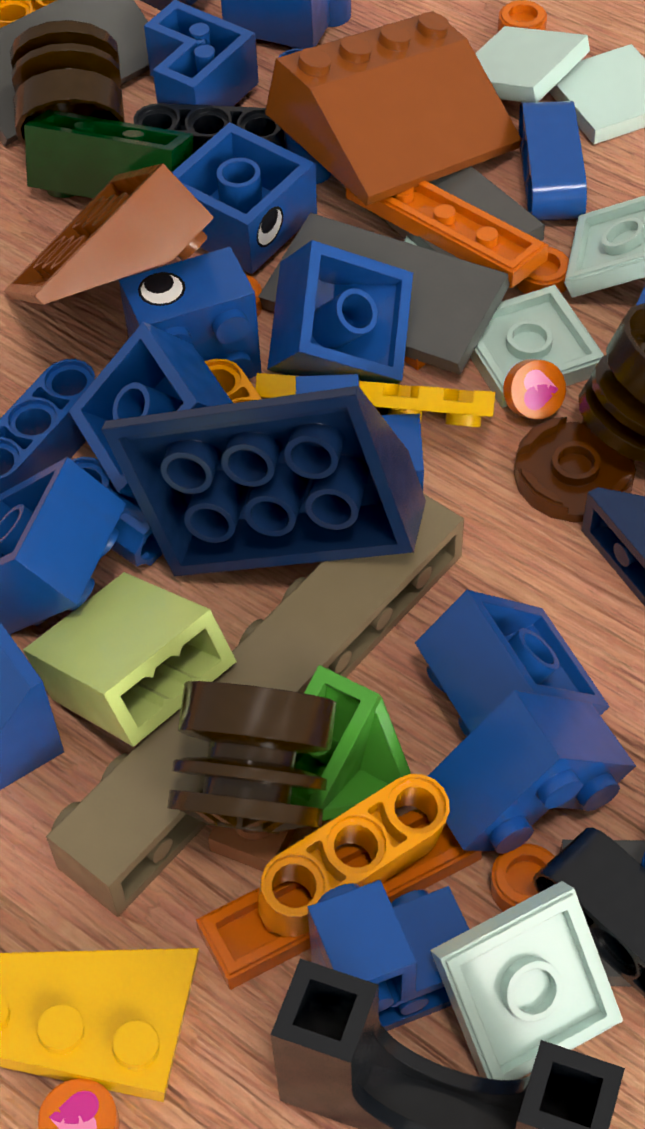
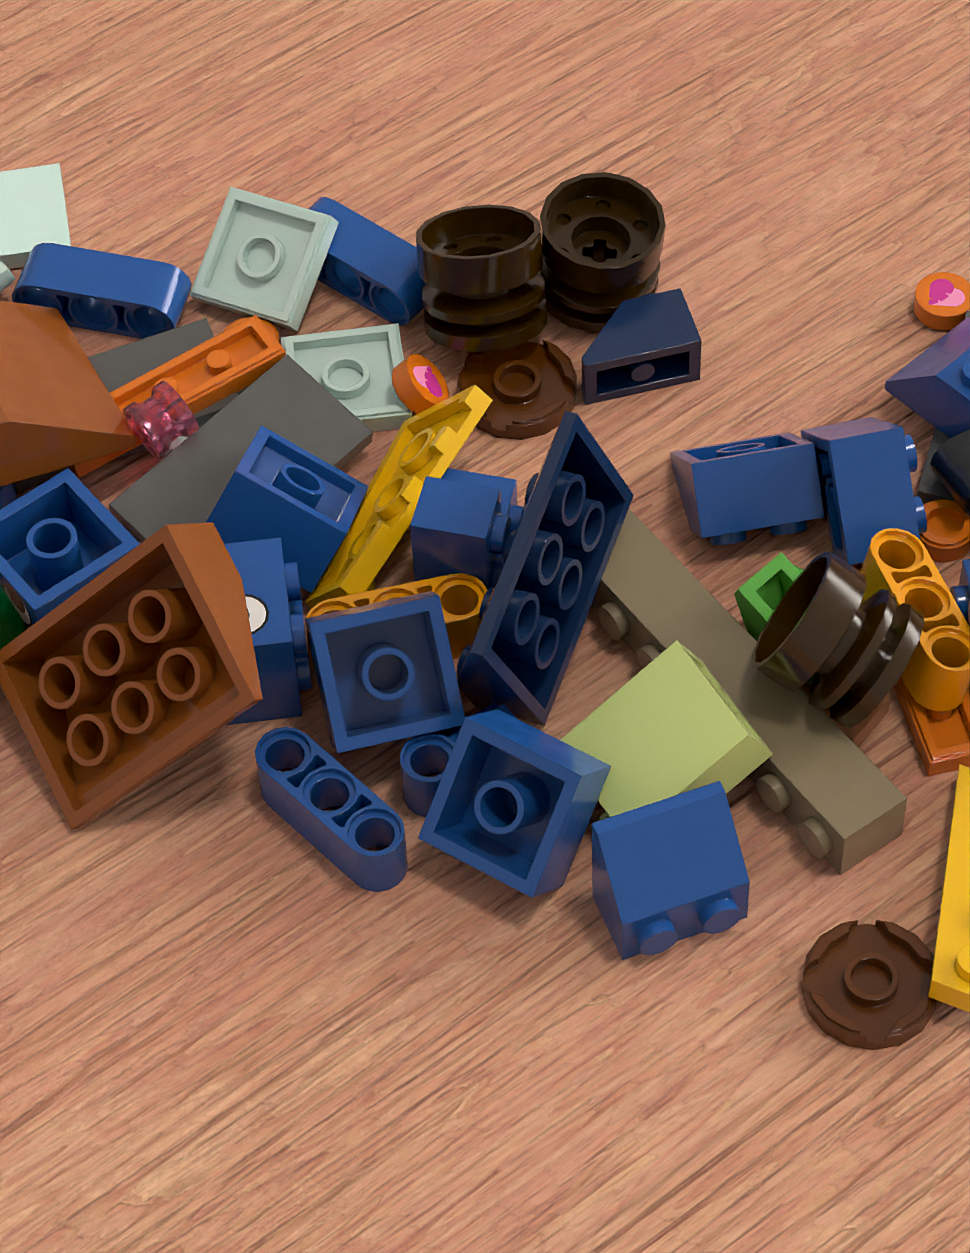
camera: 75 degrees left, 0 degrees up
(393, 207) = (160, 419): none -> clear pink wheel

